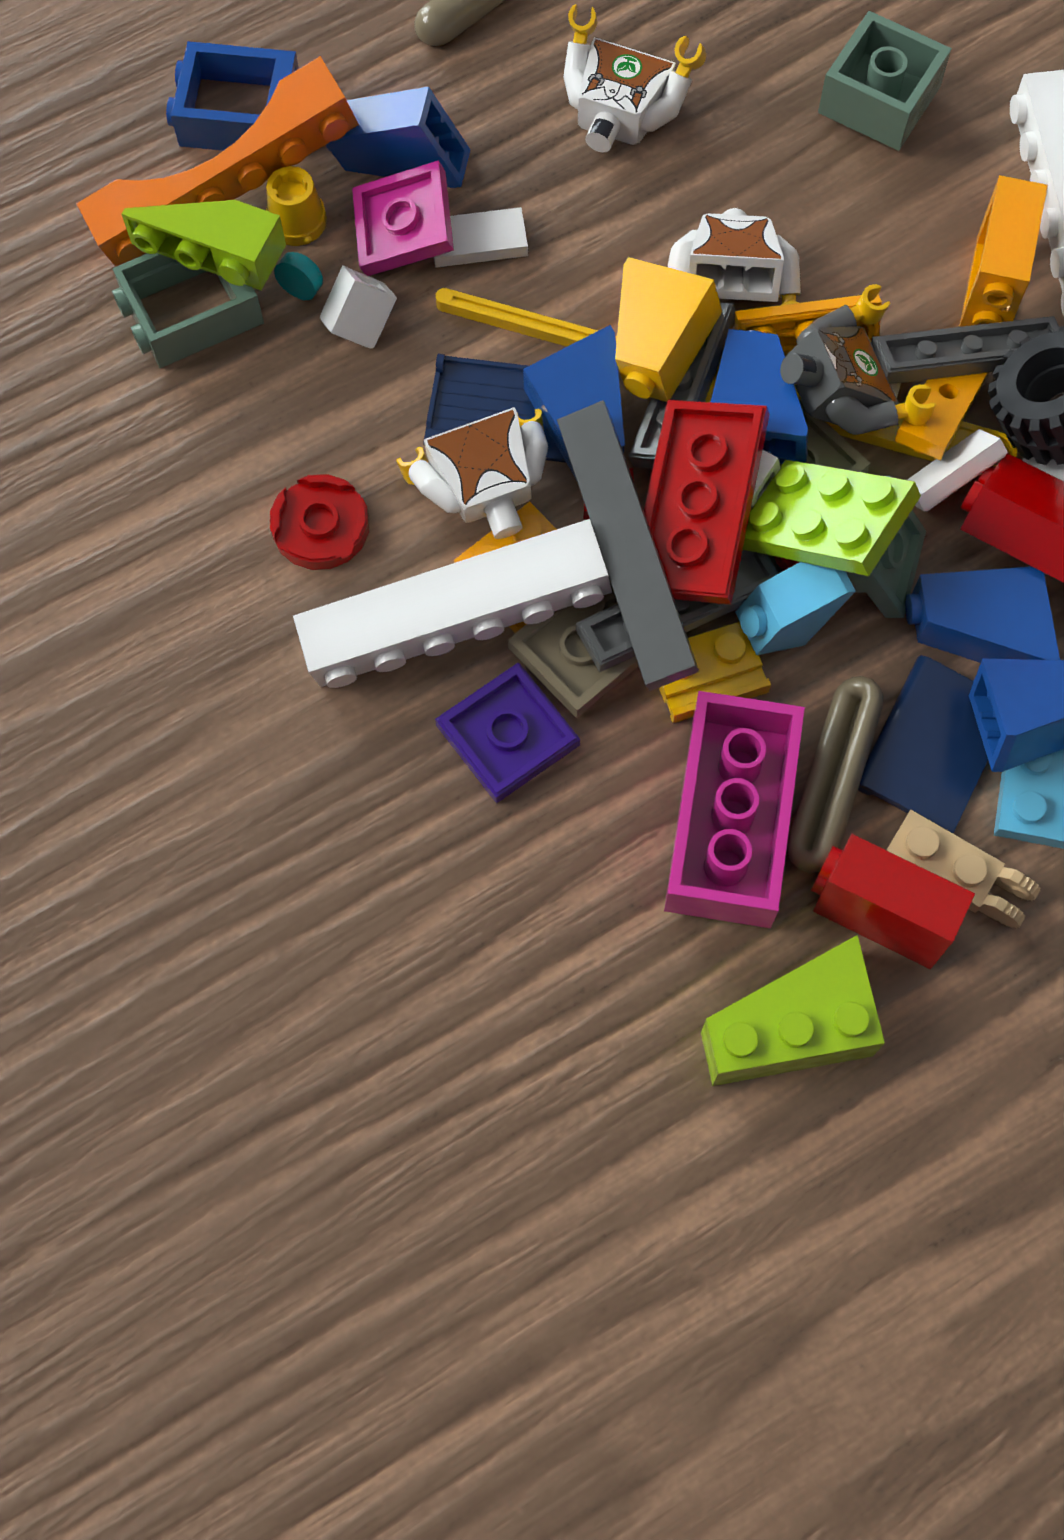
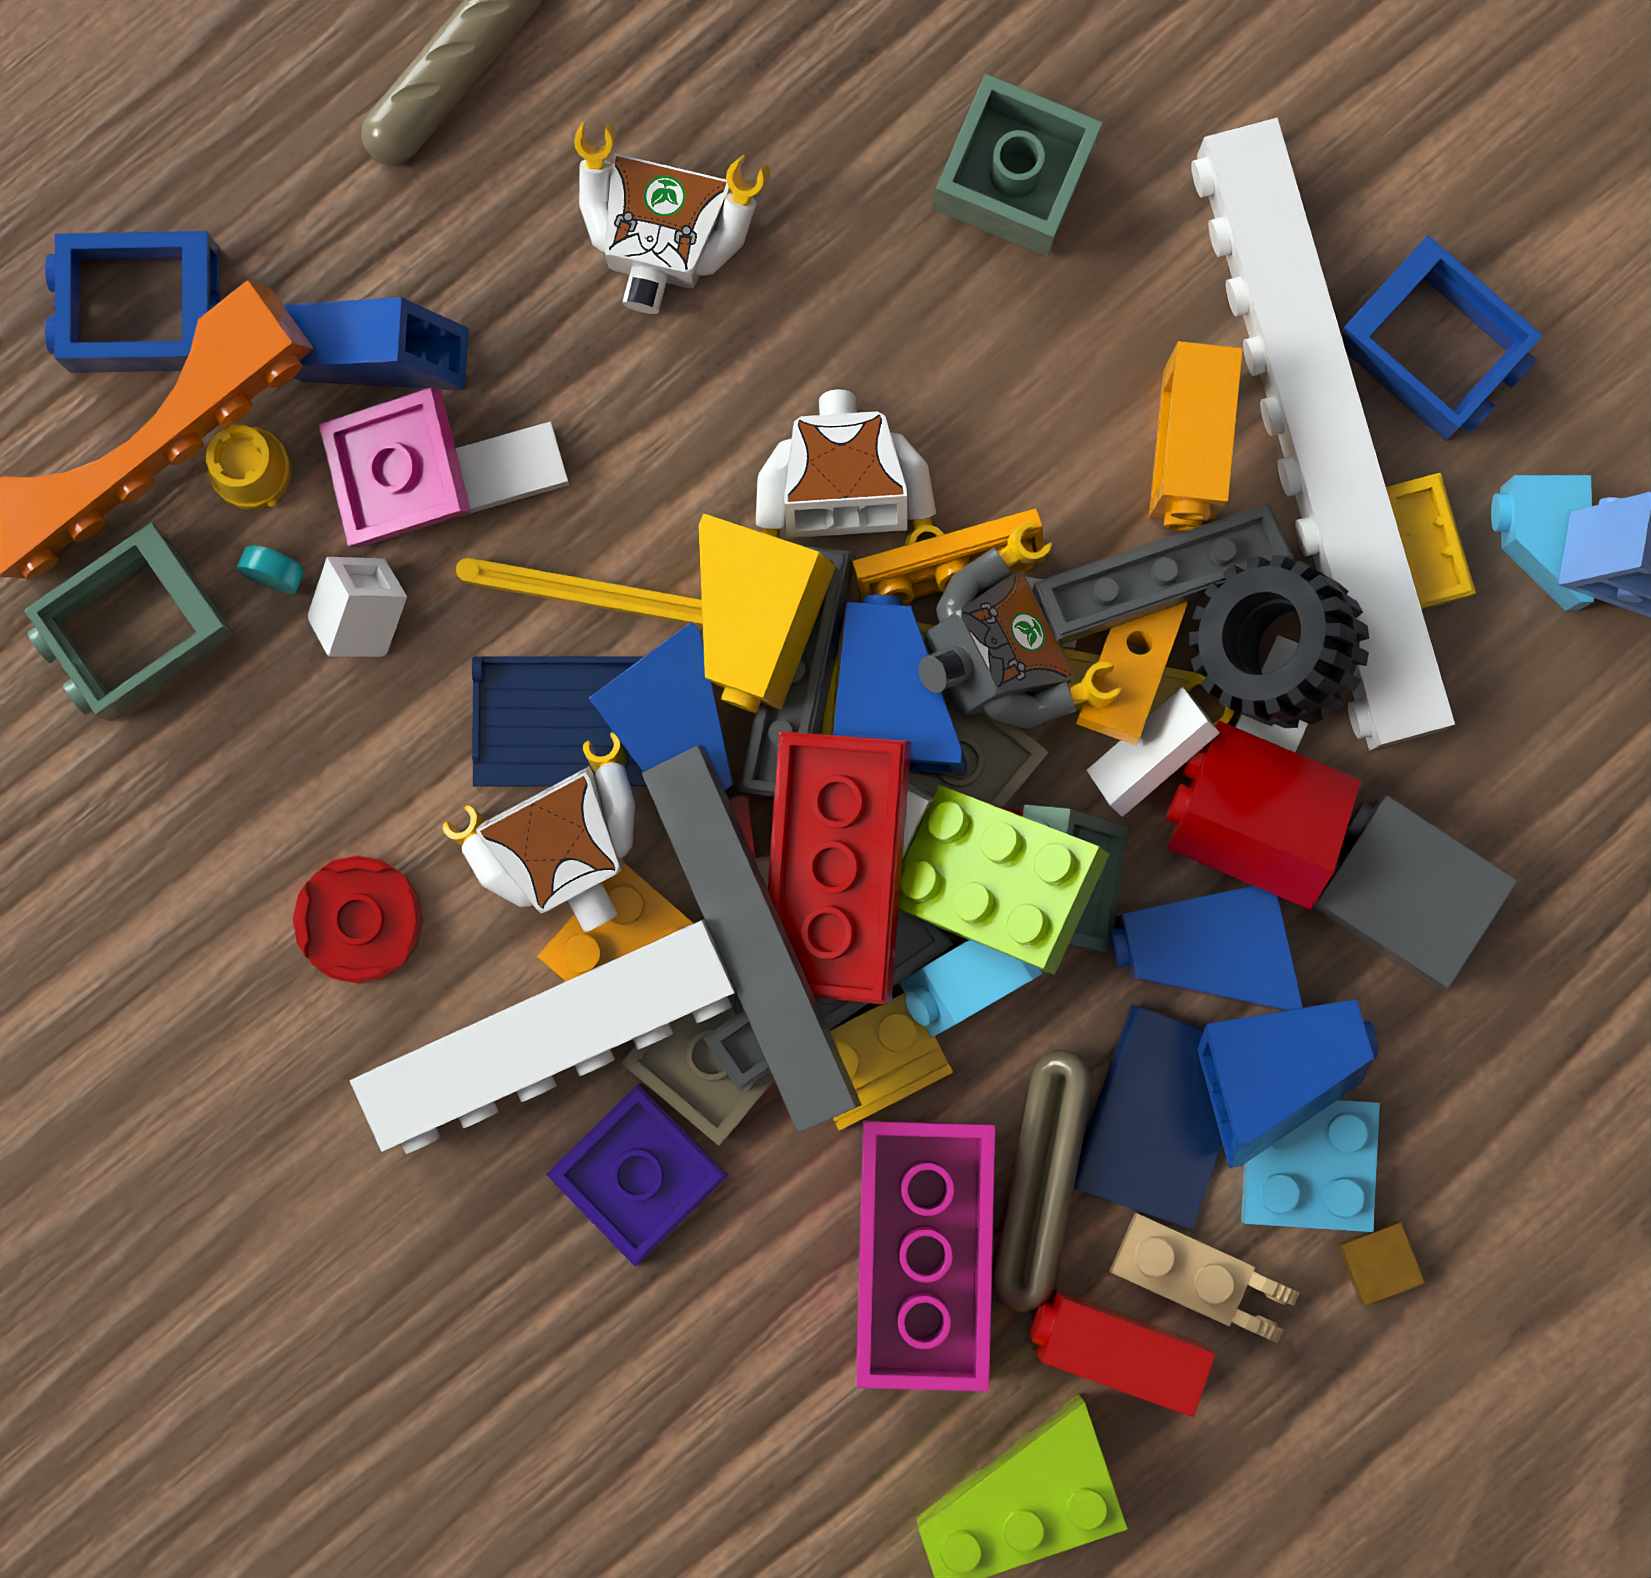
camera: 10 degrees left, 15 degrees up
(213, 236) = (162, 560): lime slope -> none

